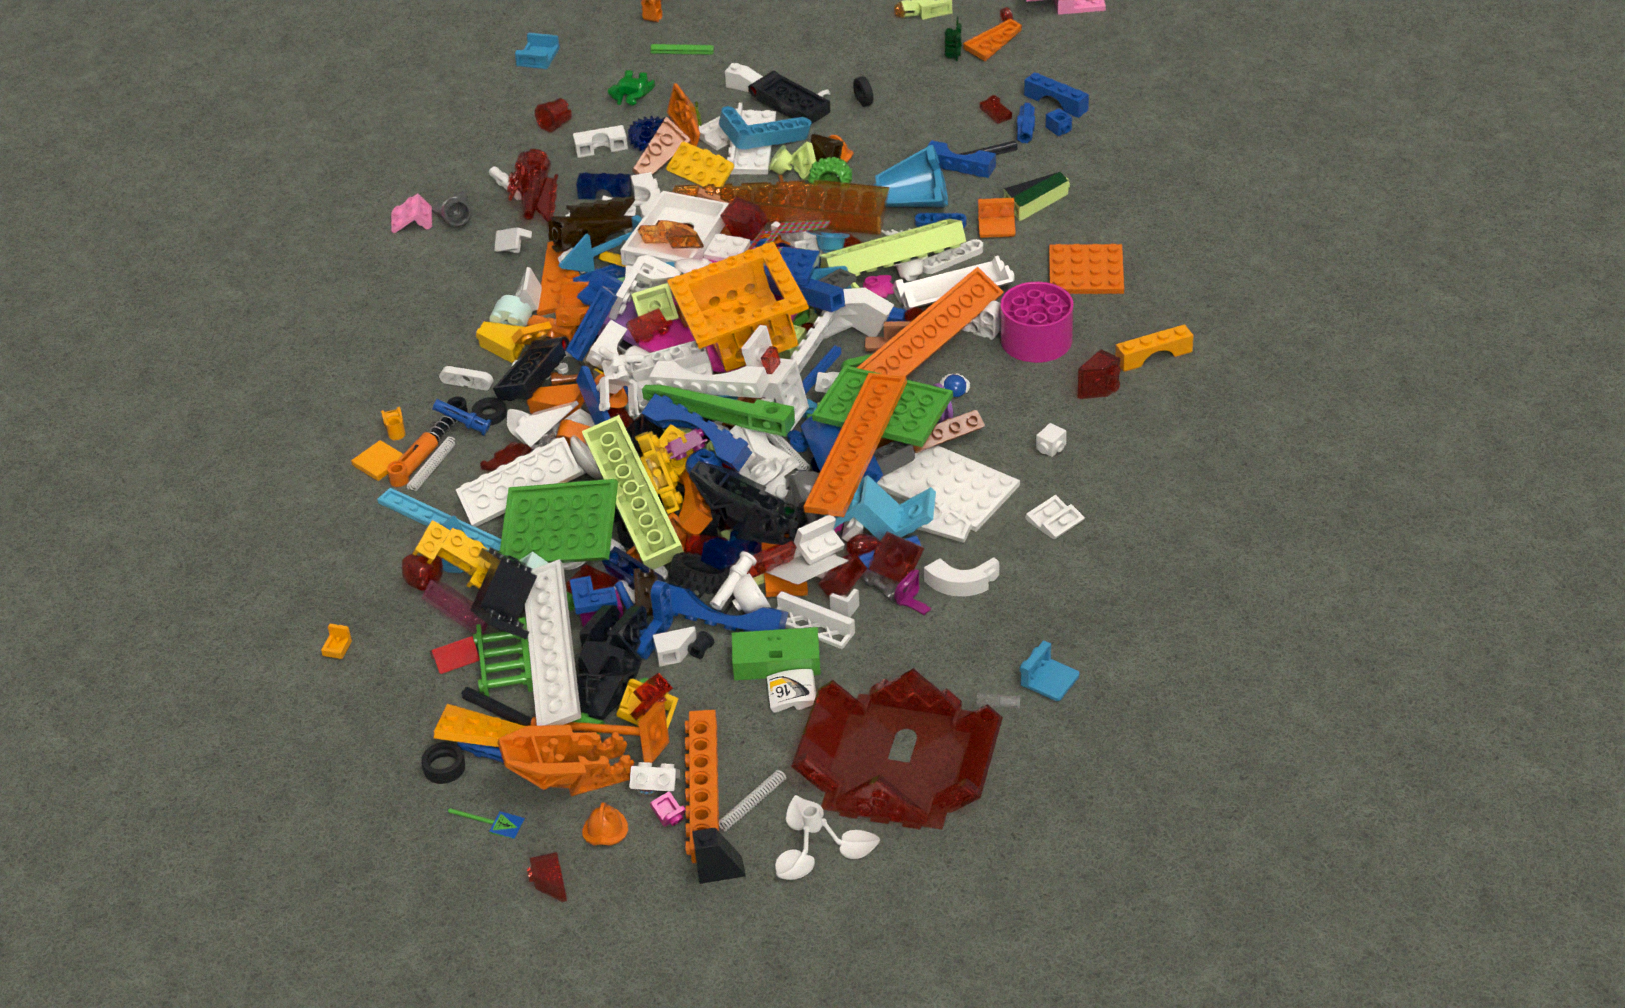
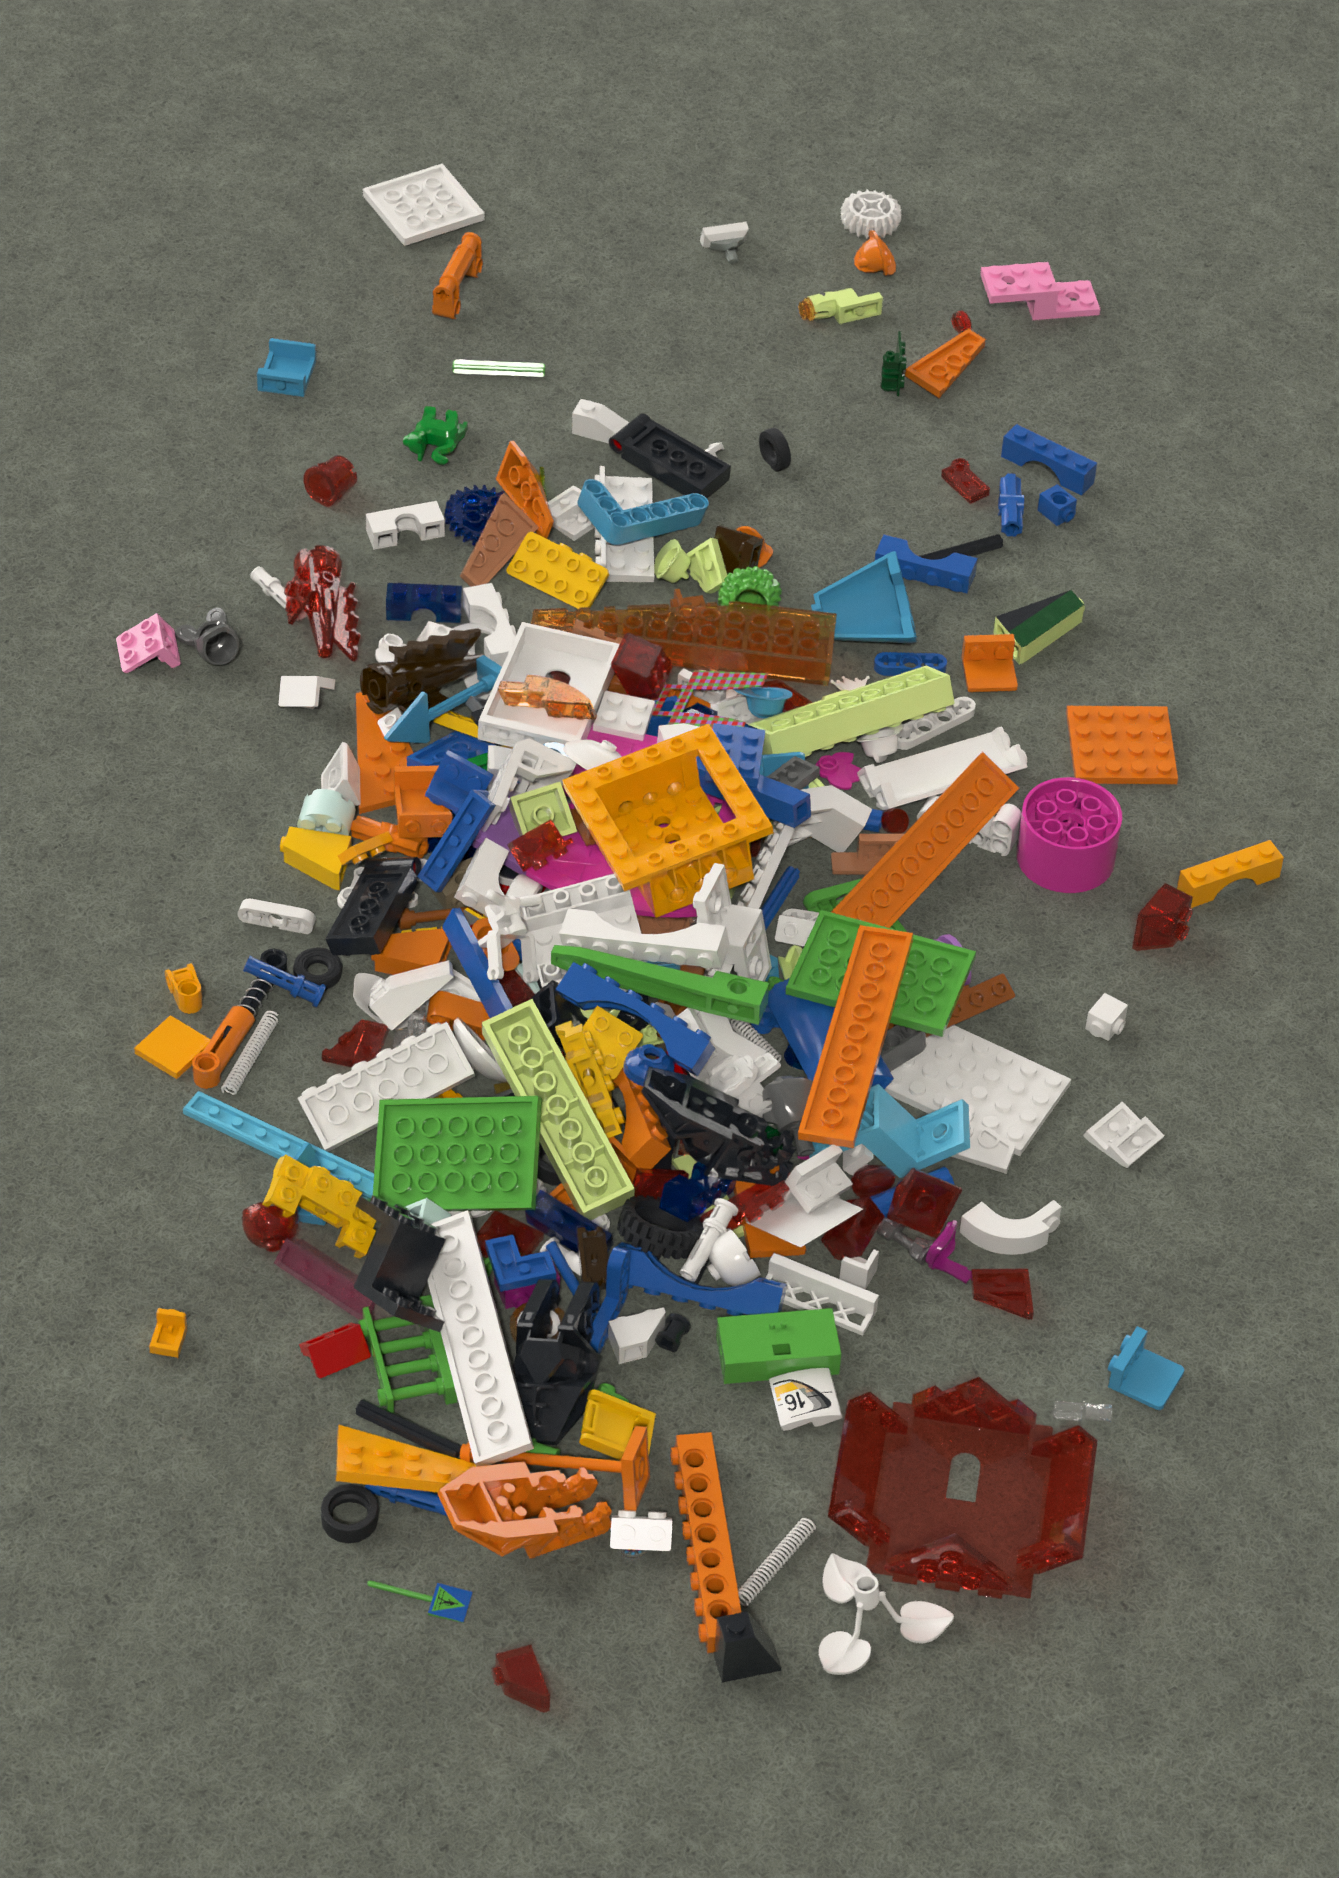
camera: 10 degrees left, 5 degrees up
(605, 826) = (584, 1603): orange helmet -> none
(649, 693) = (626, 1415): clear red bracket -> none
(667, 809) = (666, 1578): bracket -> none
(679, 448) = (635, 1035): hinge -> none
(770, 359) = (729, 910): clear red tile -> none
(950, 618) = (1004, 1290): none -> clear red wing
(957, 383) = (965, 929): blue hair -> none

